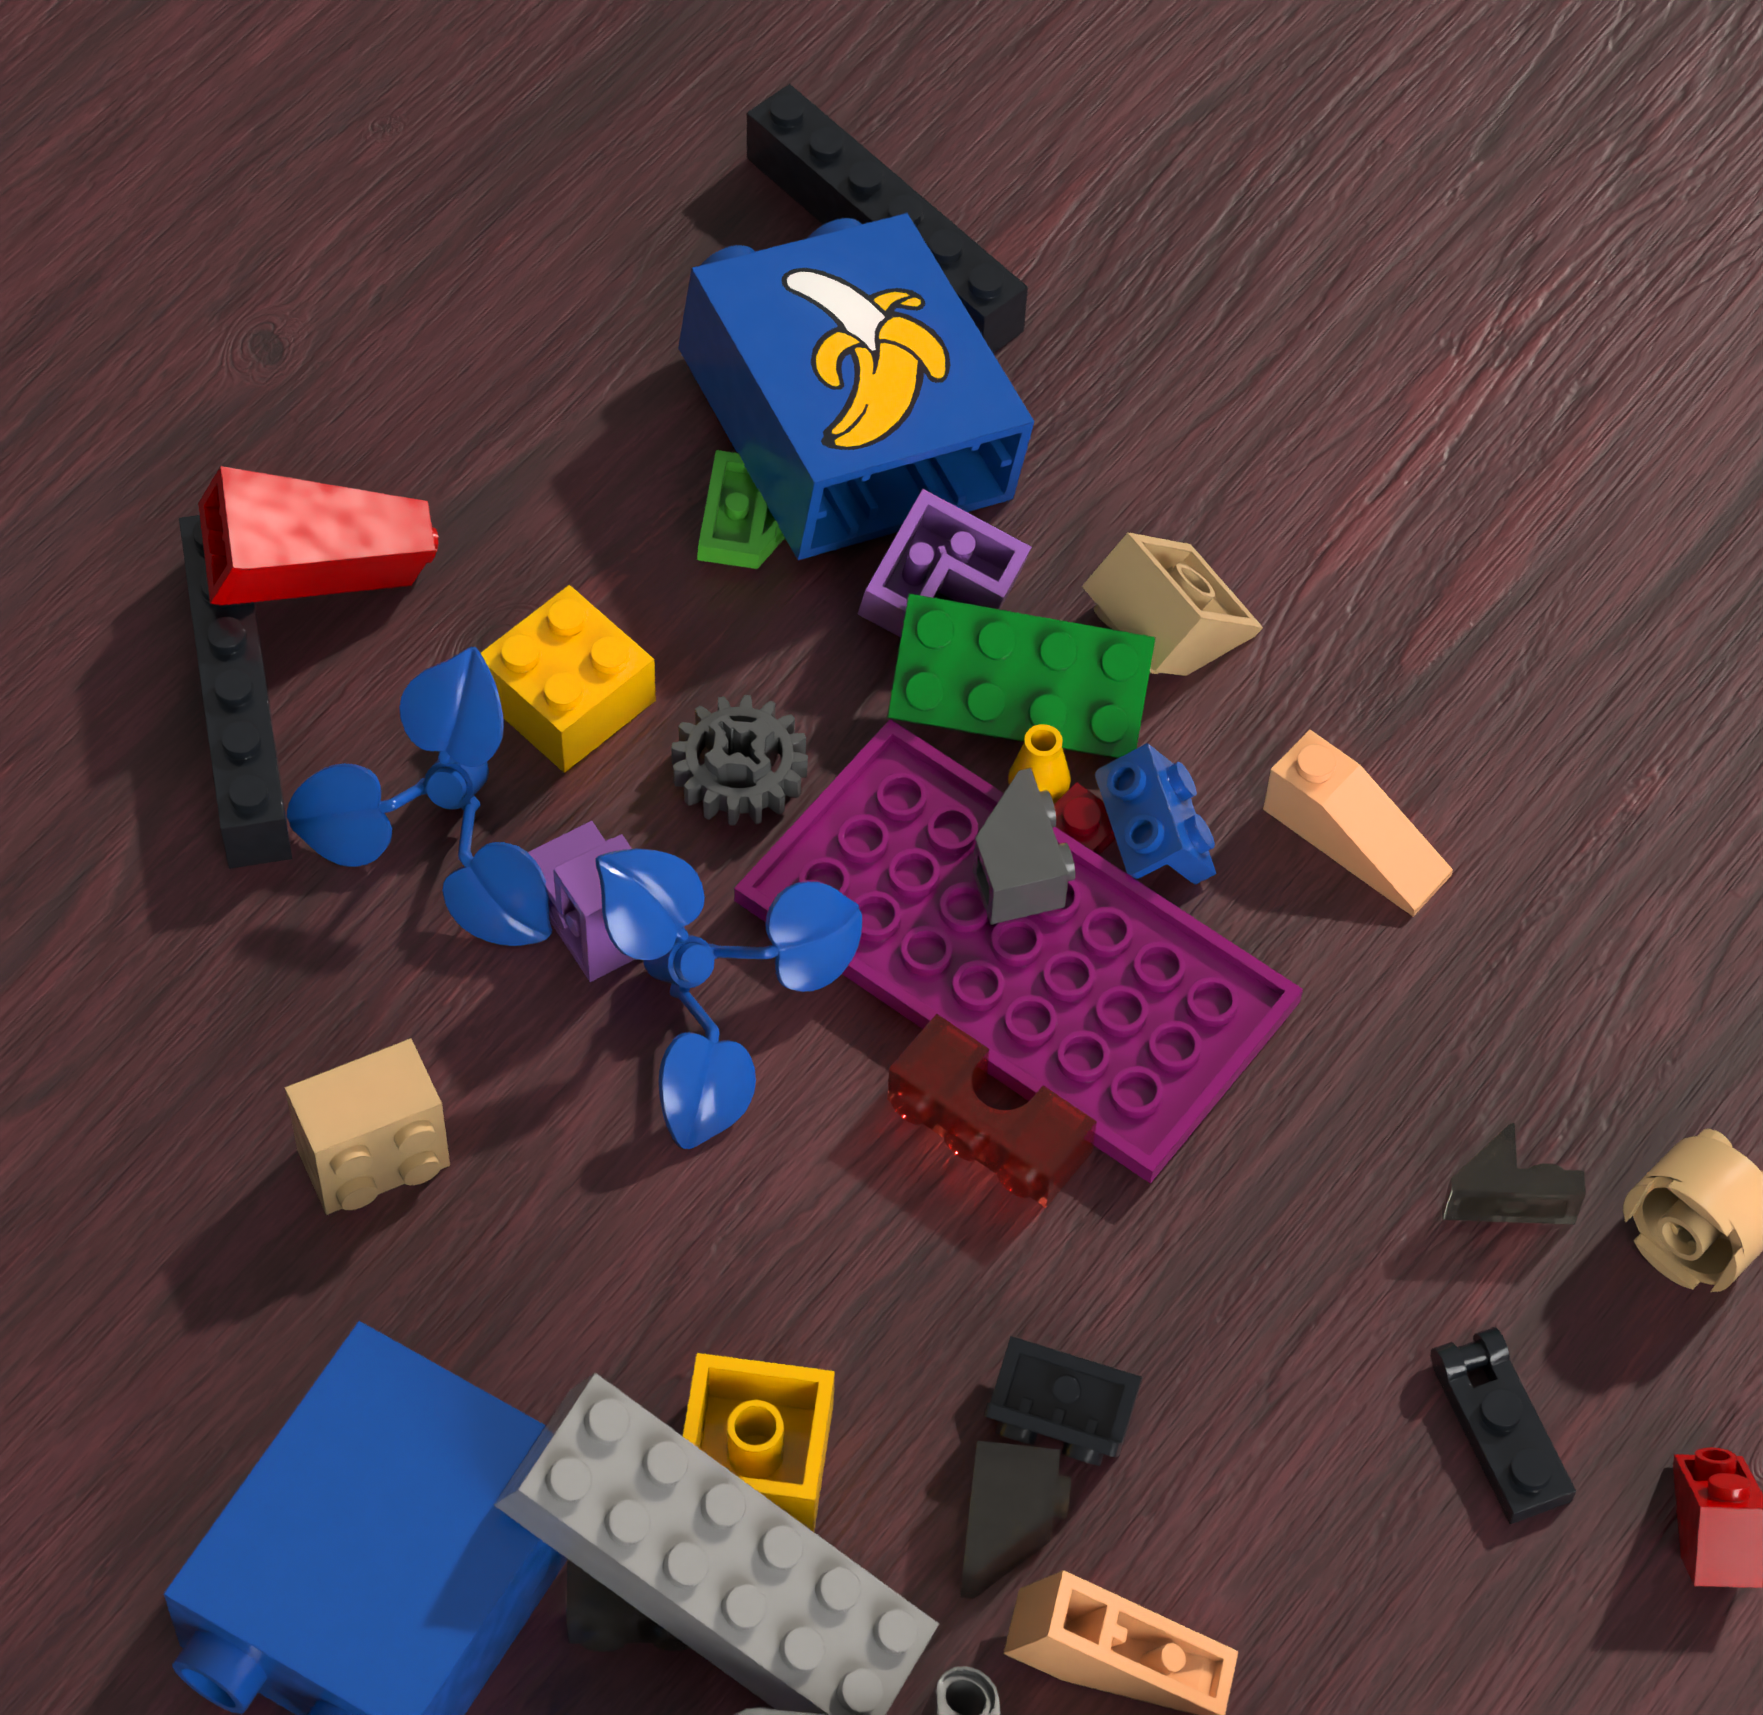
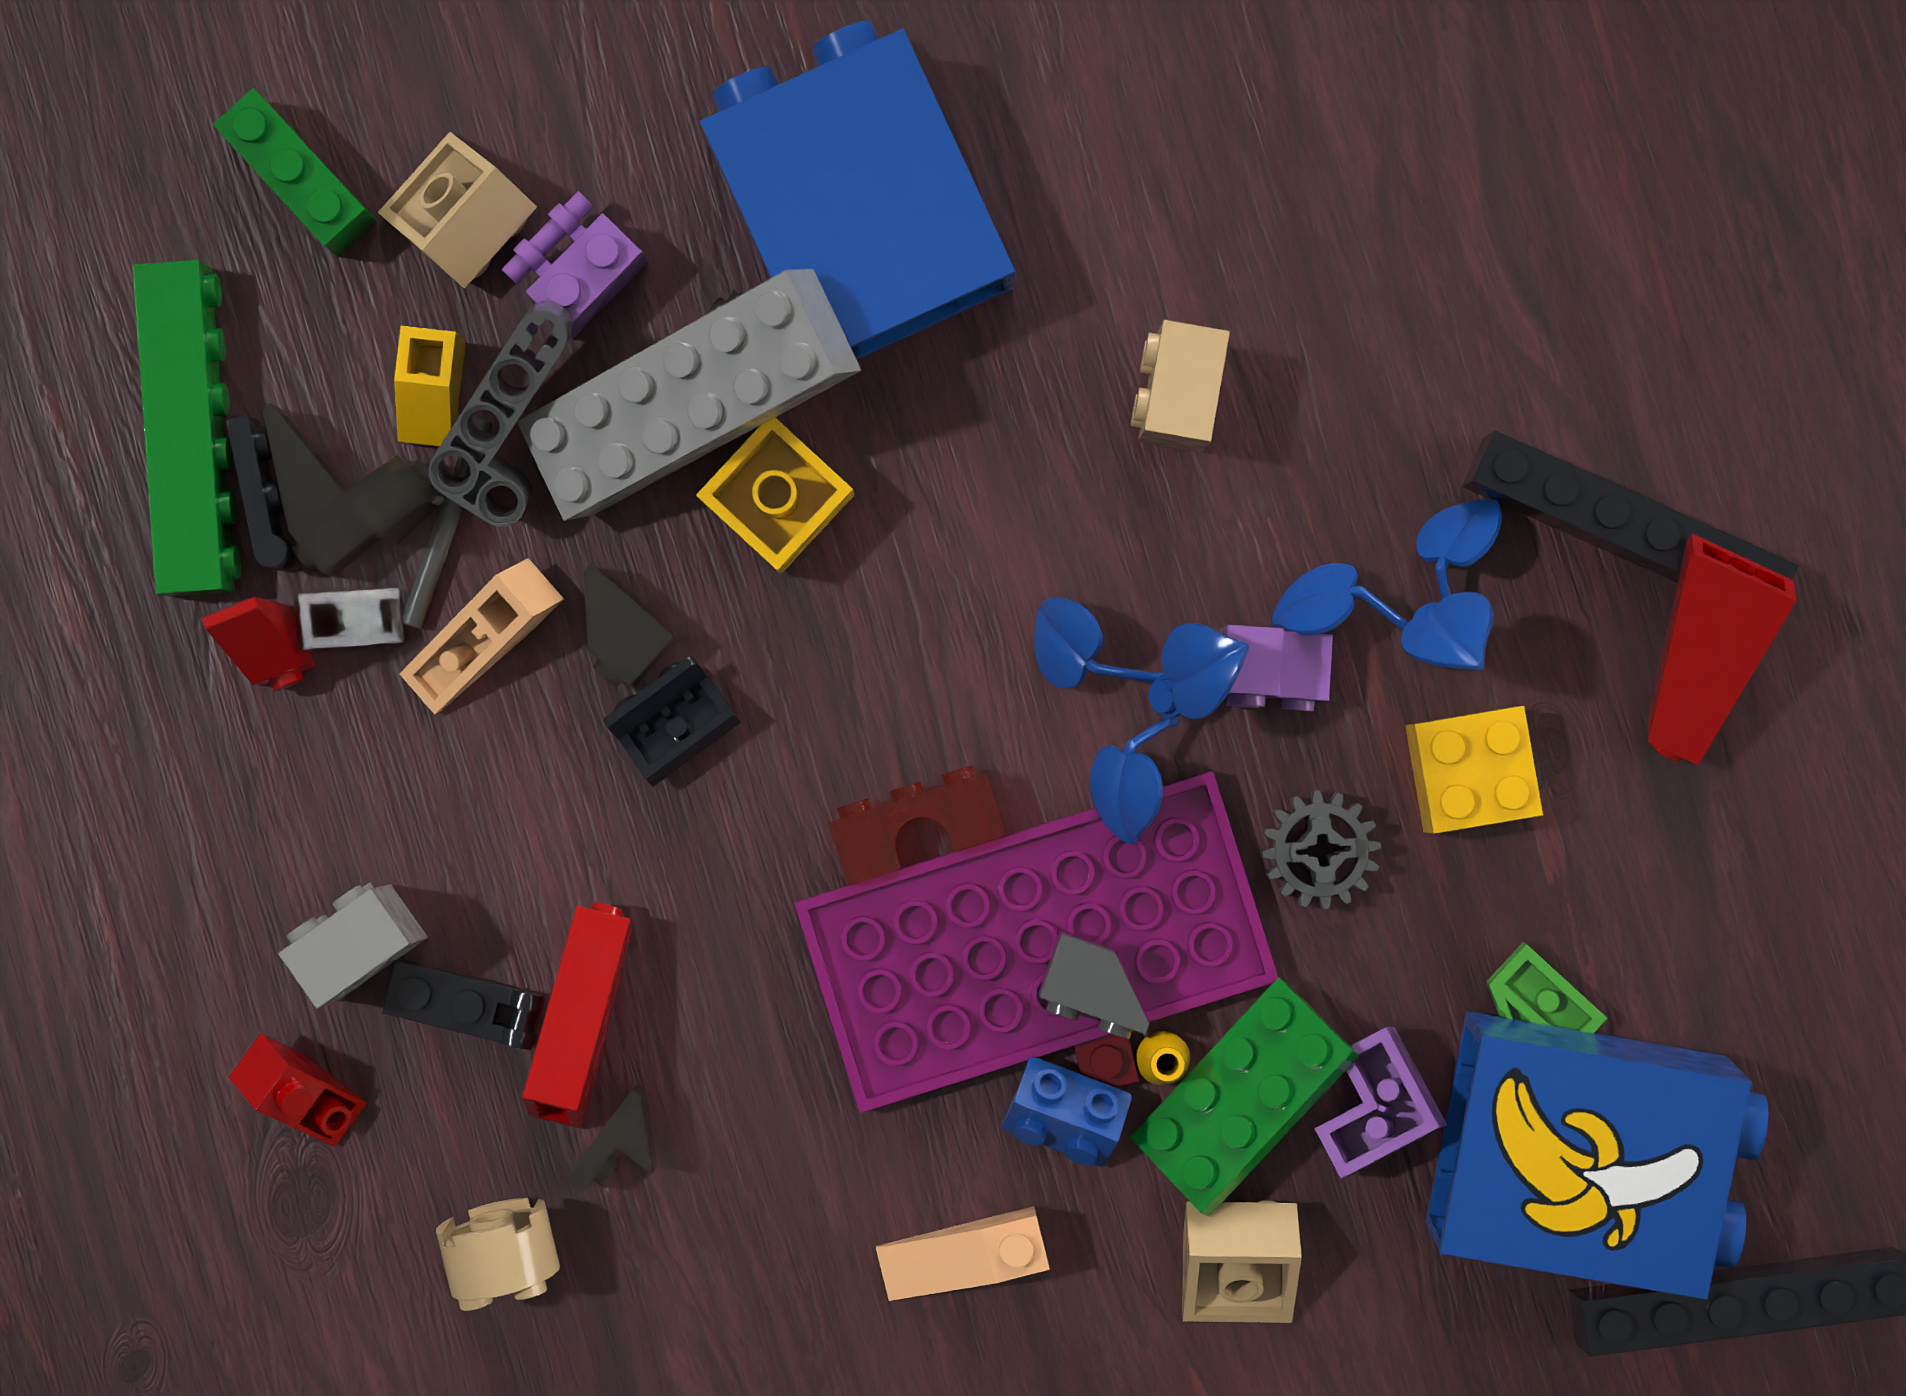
camera: 125 degrees right, 30 degrees up
(1424, 1290) = (578, 1016): none -> red slope
(1533, 1544) = (353, 944): none -> light grey brick

